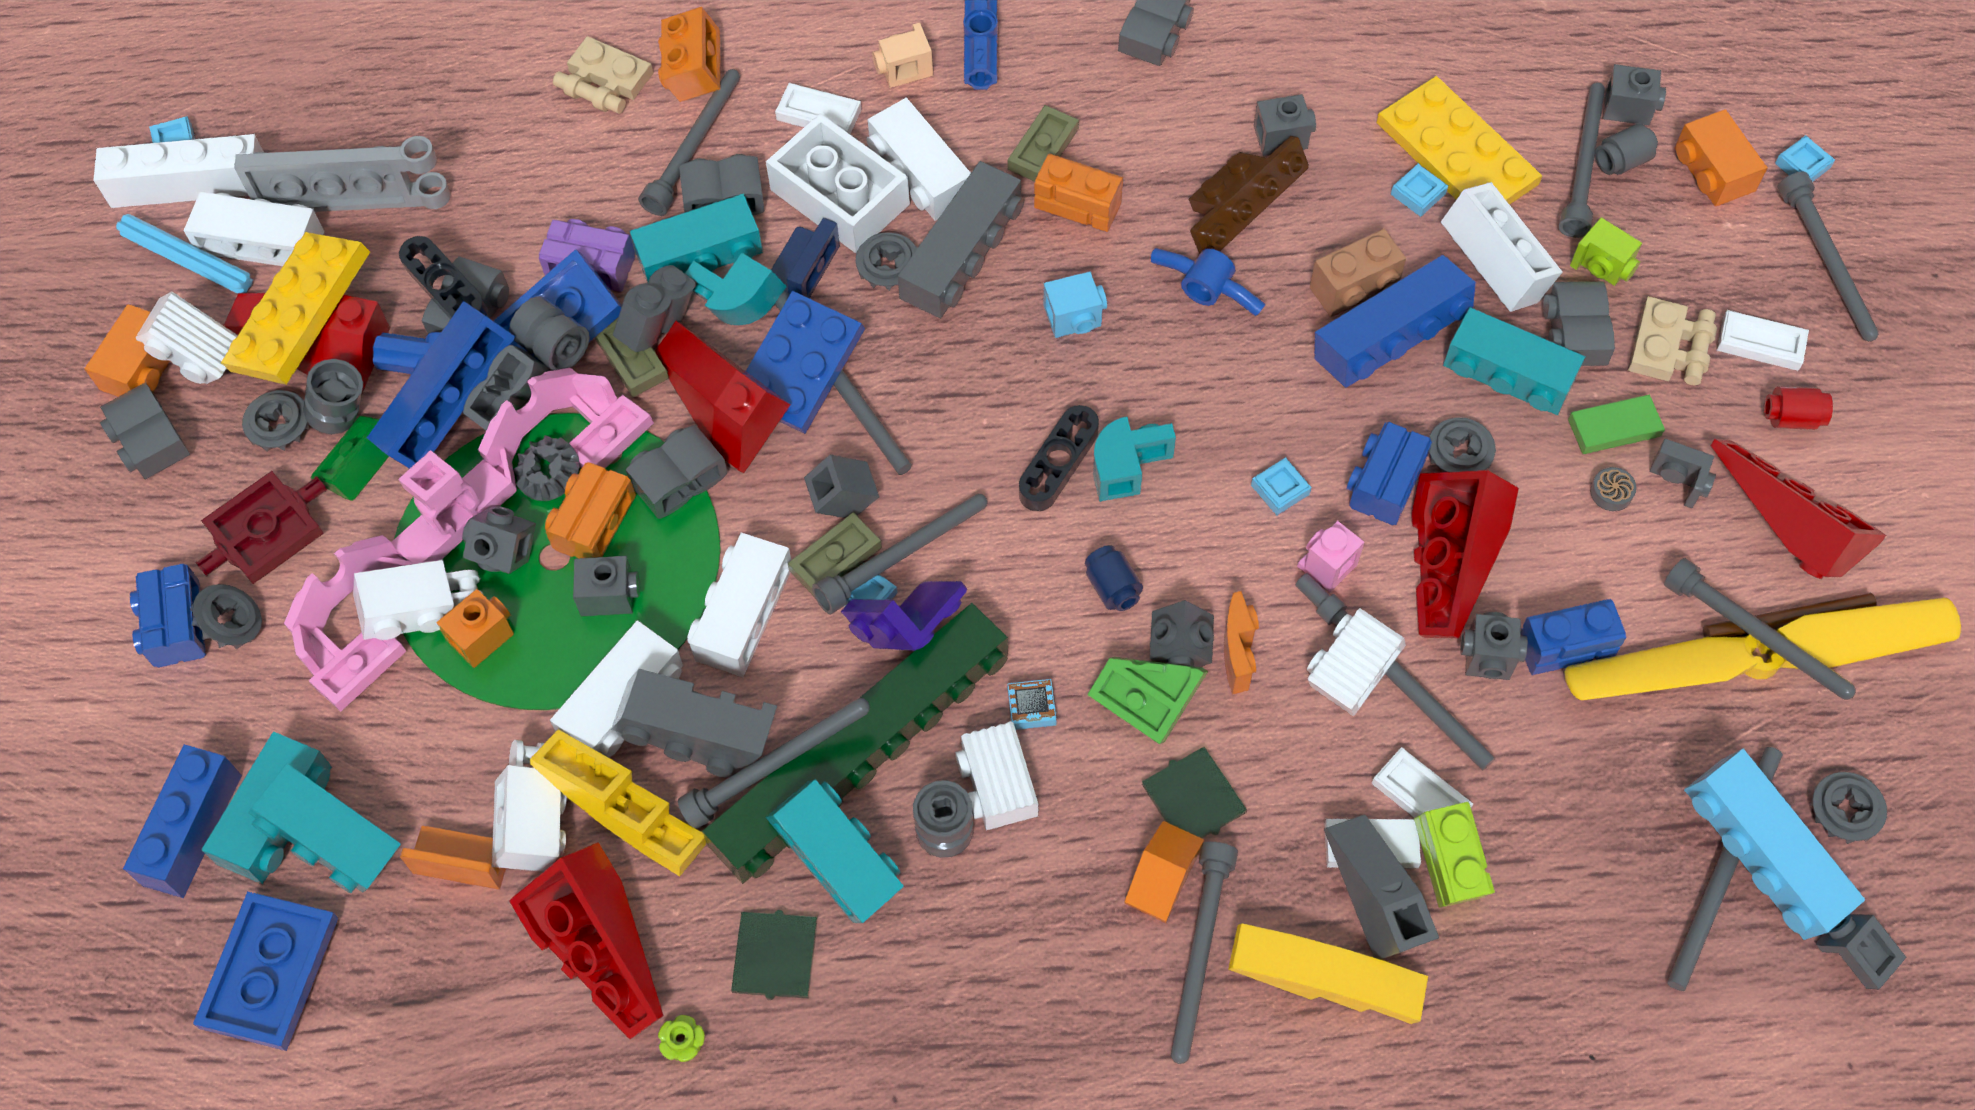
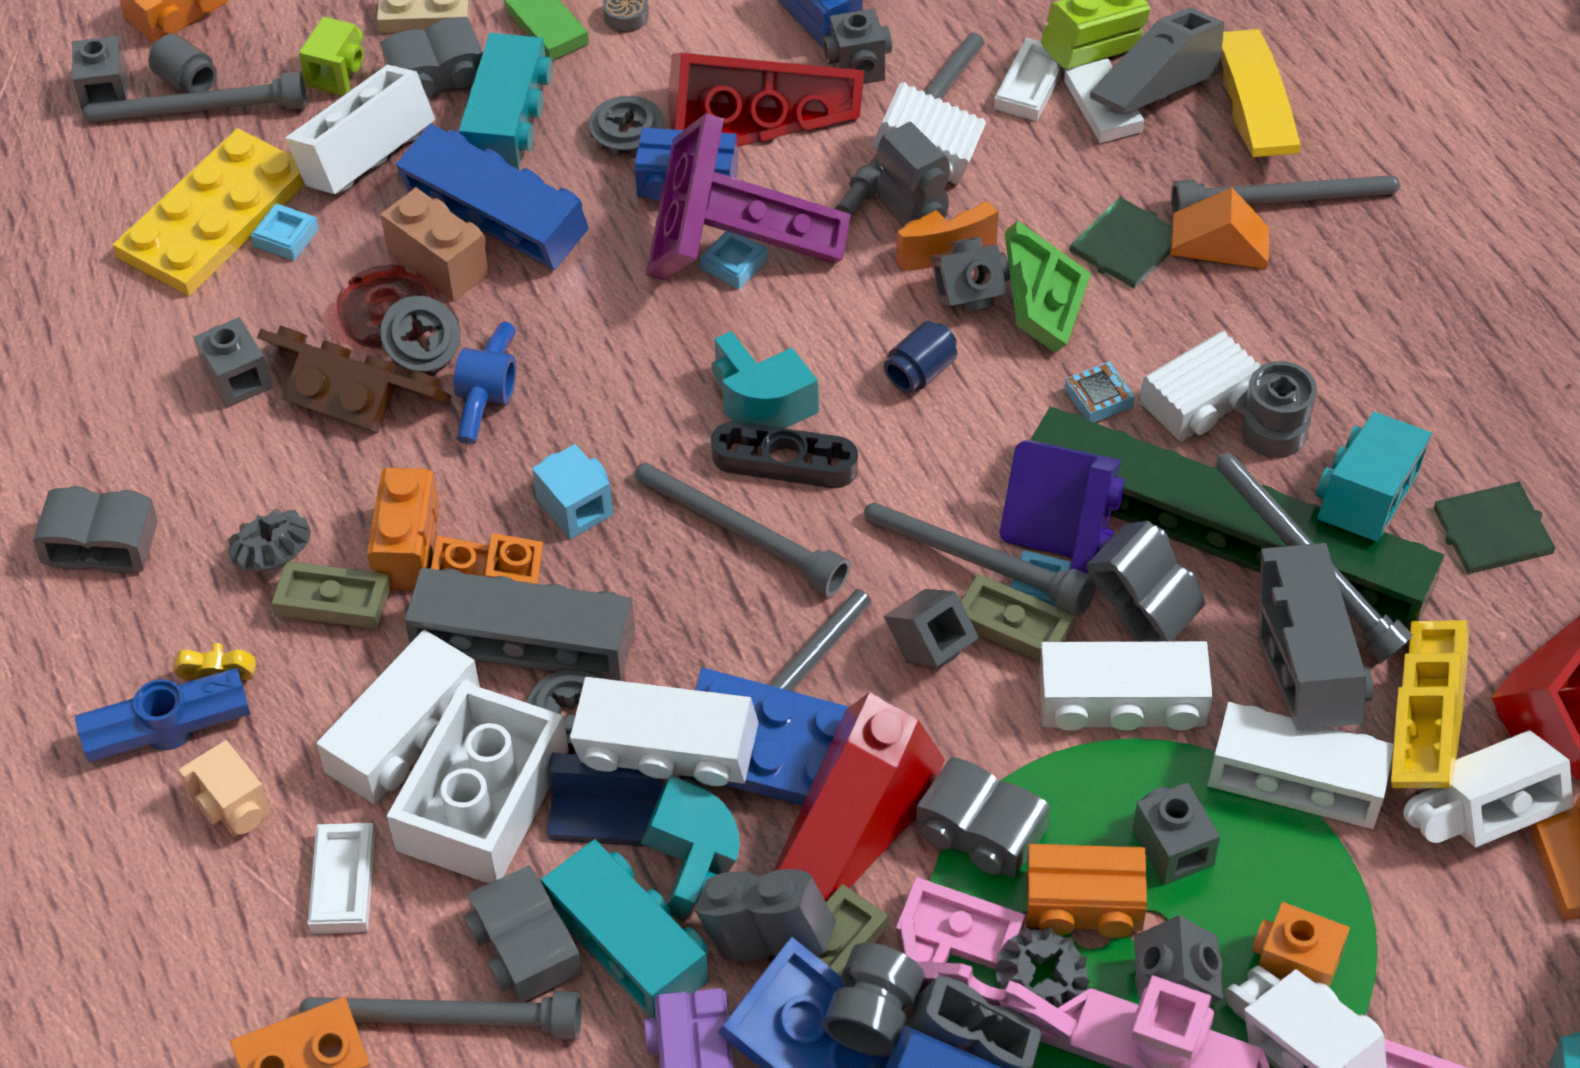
camera: 110 degrees left, 10 degrees down
(803, 272) = (664, 731): none -> white brick
(809, 641) = (1146, 583): none -> dark grey brick
(935, 446) = (823, 570): none -> dark grey piece
(1012, 70) = (196, 665): none -> yellow piece
(1034, 241) = (503, 556): none -> orange slope
(1095, 122) = (288, 536): none -> dark grey gear
(1251, 237) = (429, 316): none -> dark grey gear
(1296, 623) = (912, 174): none -> dark grey brick
(1298, 477) = (699, 197): none -> magenta piece
(1310, 234) = (370, 297): none -> clear red tile
(1331, 555) = (812, 176): bright pink brick -> none

